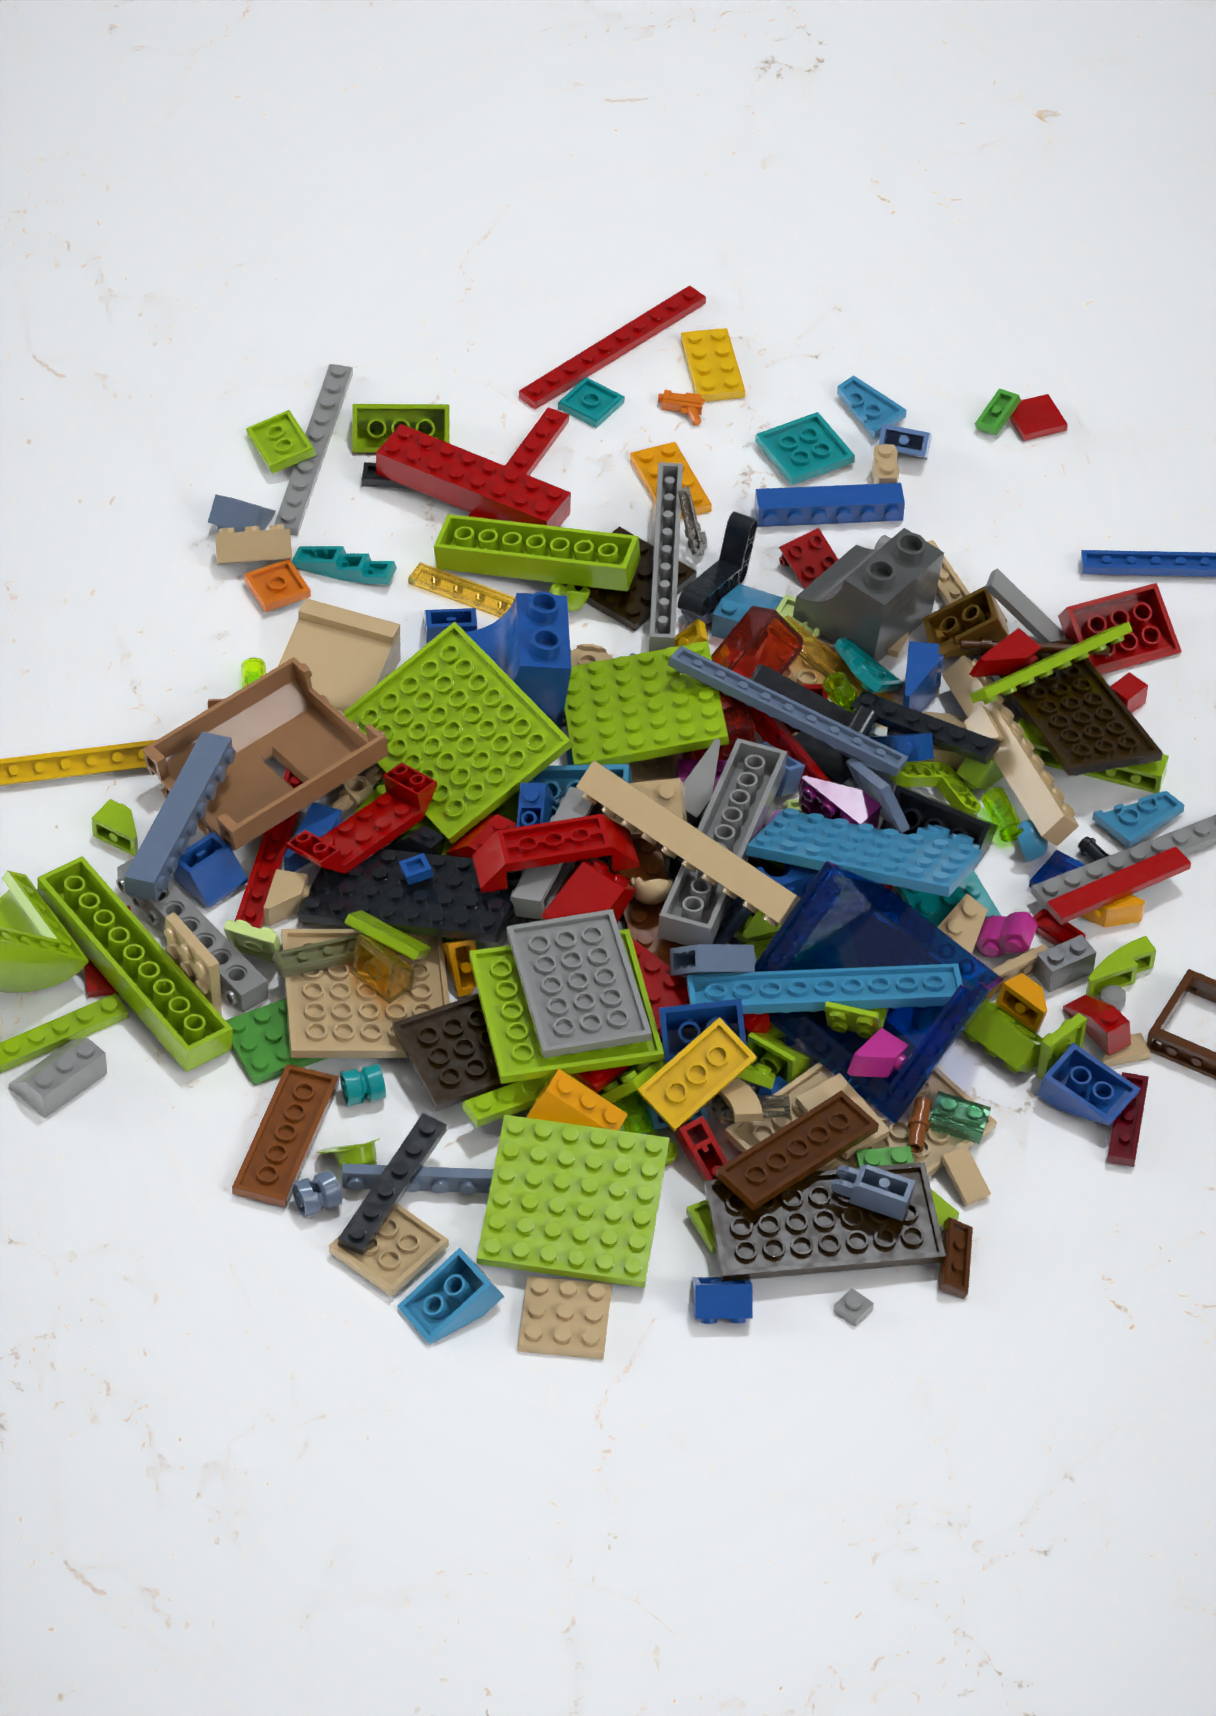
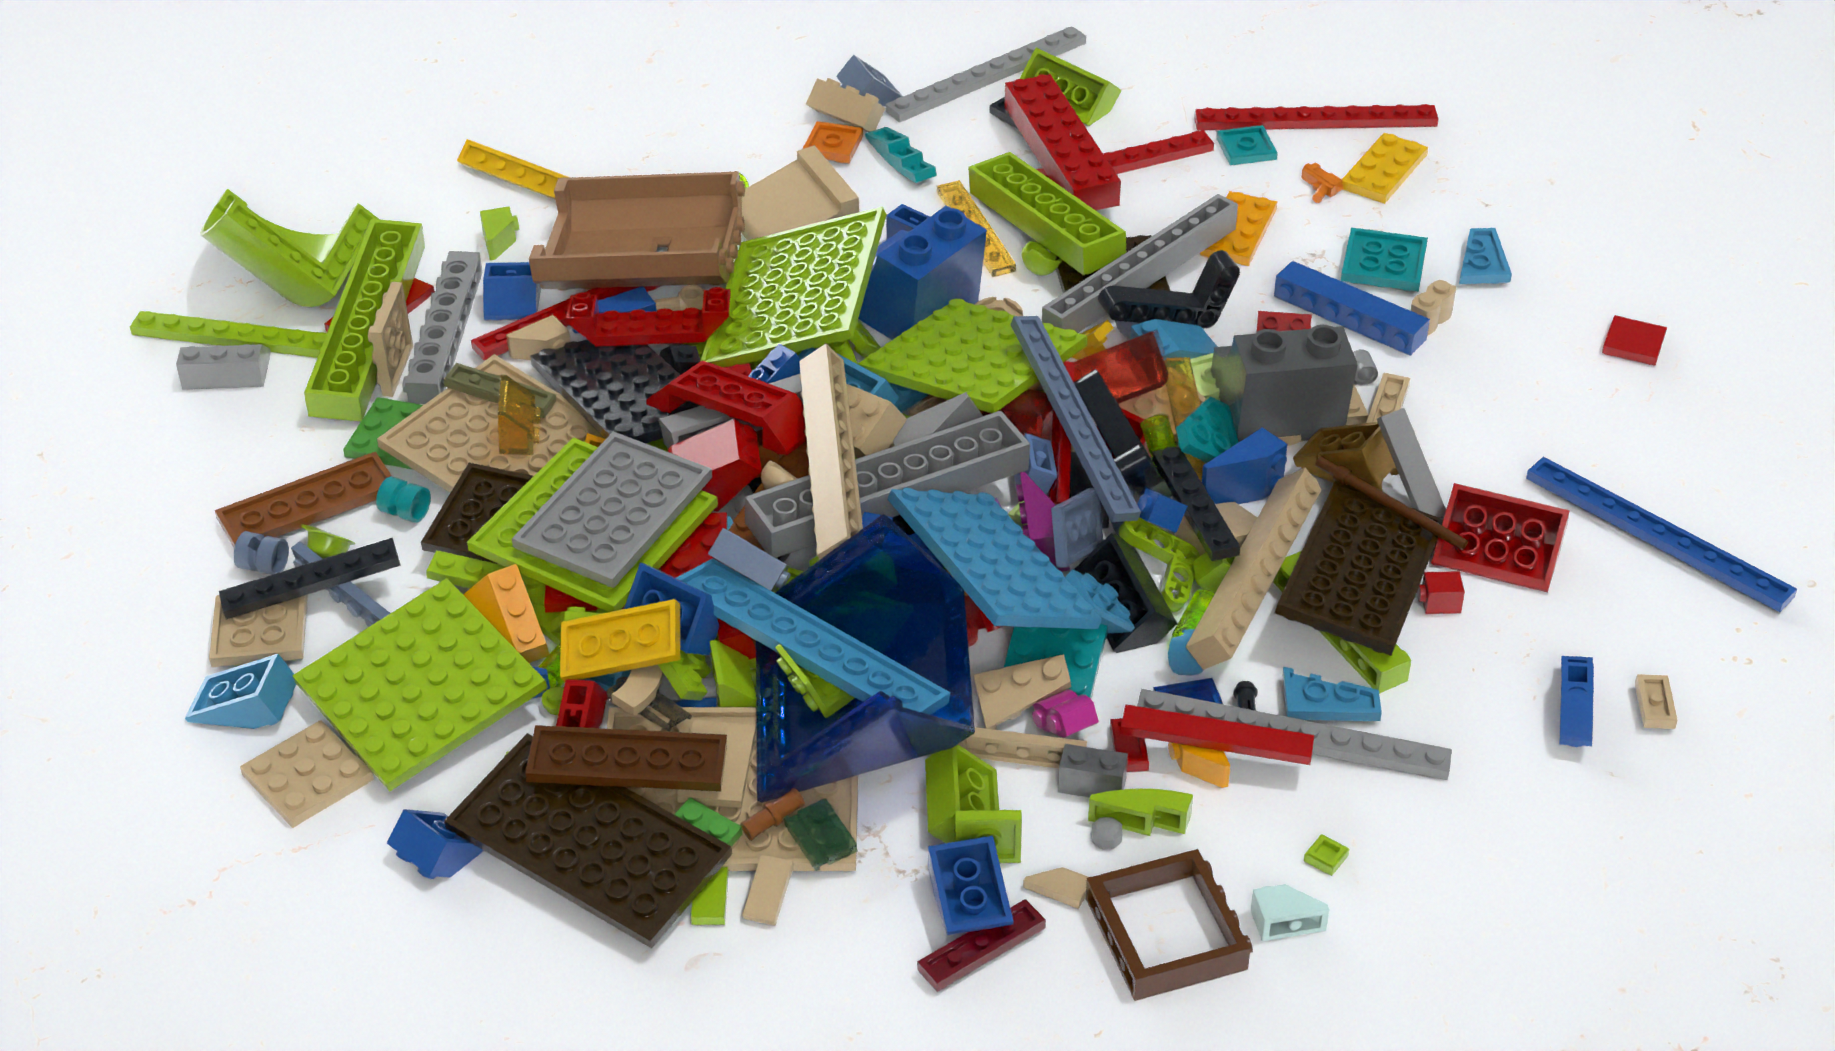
camera: 45 degrees right, 5 degrees down
(179, 816) = (519, 233): sand blue brick -> none
(252, 940) = (466, 349): yellowish green plate -> none
(280, 441) = (963, 54): lime tile -> none
(387, 935) = (549, 398): lime tile -> none
(416, 869) = (632, 365): blue plate -> none
(696, 540) = (1204, 252): clear smoke piece -> none
(853, 1307) = (533, 932): light grey plate -> none
(875, 1189) = (643, 837): sand blue hinge -> none
(879, 1056) = (786, 723): dark pink slope -> none
(906, 440) = (1478, 293): medium blue brick -> none
(956, 1266) = (669, 953): reddish brown tile -> none
(983, 723) = (1251, 529): tan tile -> none
(997, 412) = (1596, 315): bright green plate -> none
(1007, 656) = (1339, 487): red slope -> none
(1023, 1001) = (1012, 776): light orange slope -> none
(1044, 667) = (1363, 514): lime plate -> none
(1104, 1023) = (1056, 844): red slope -> none

